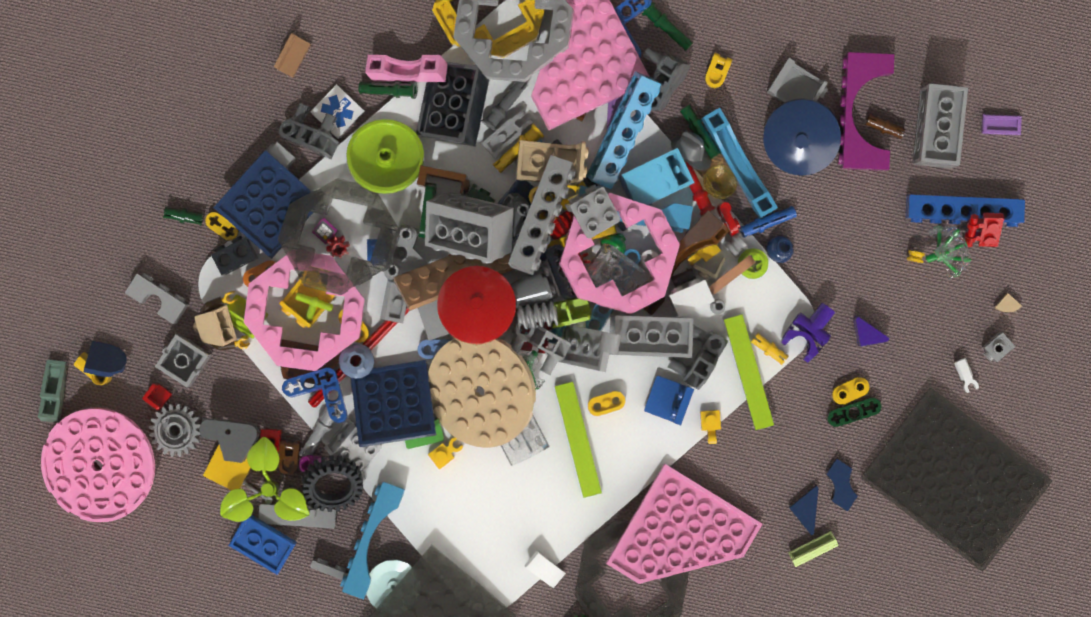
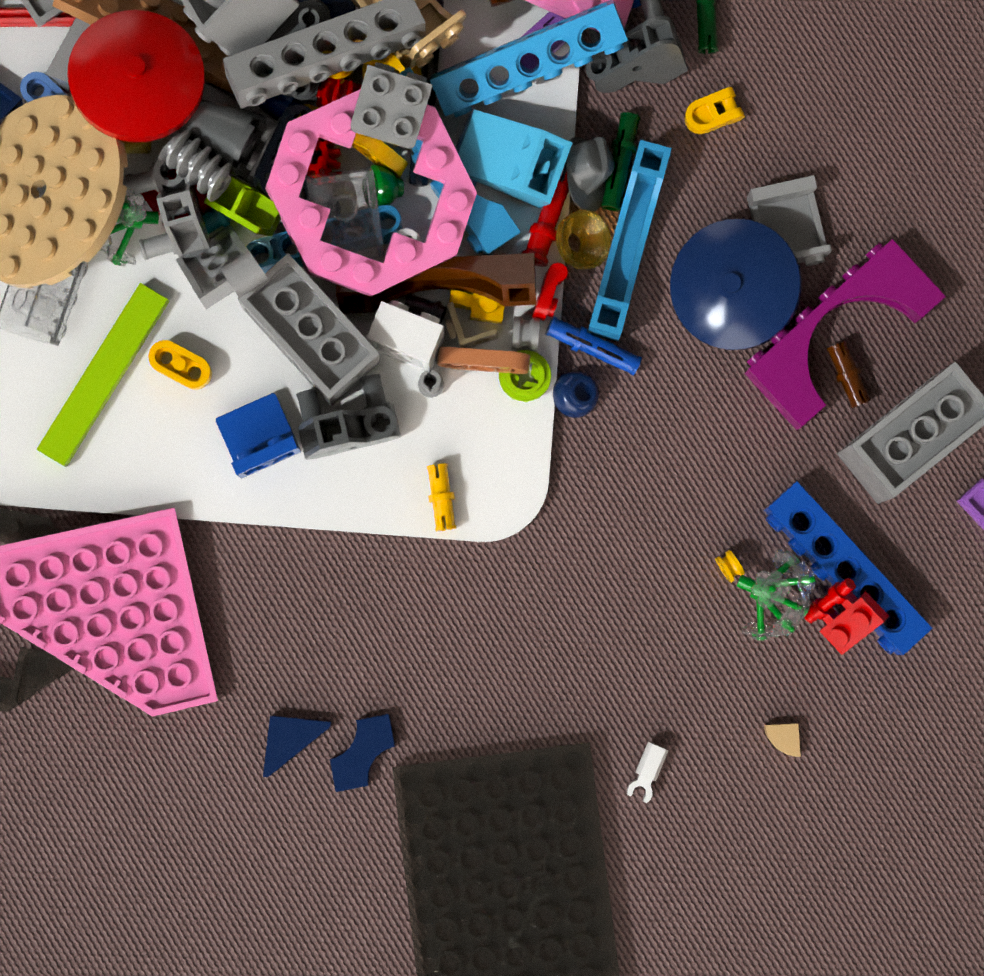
camera: 45 degrees right, 5 degrees down
(710, 421) = (281, 514): yellow plate -> none
(748, 372) = (387, 500): lime tile -> none
(812, 330) = (514, 524): dark purple connector -> none
(813, 549) = (247, 795): yellowish green piece -> none
(841, 421) = (484, 697): dark green beam -> none
(850, 390) = (488, 649): yellow plate -> none
(867, 334) = (577, 600): dark purple slope -> none
(999, 339) = (733, 777): light grey brick -> none

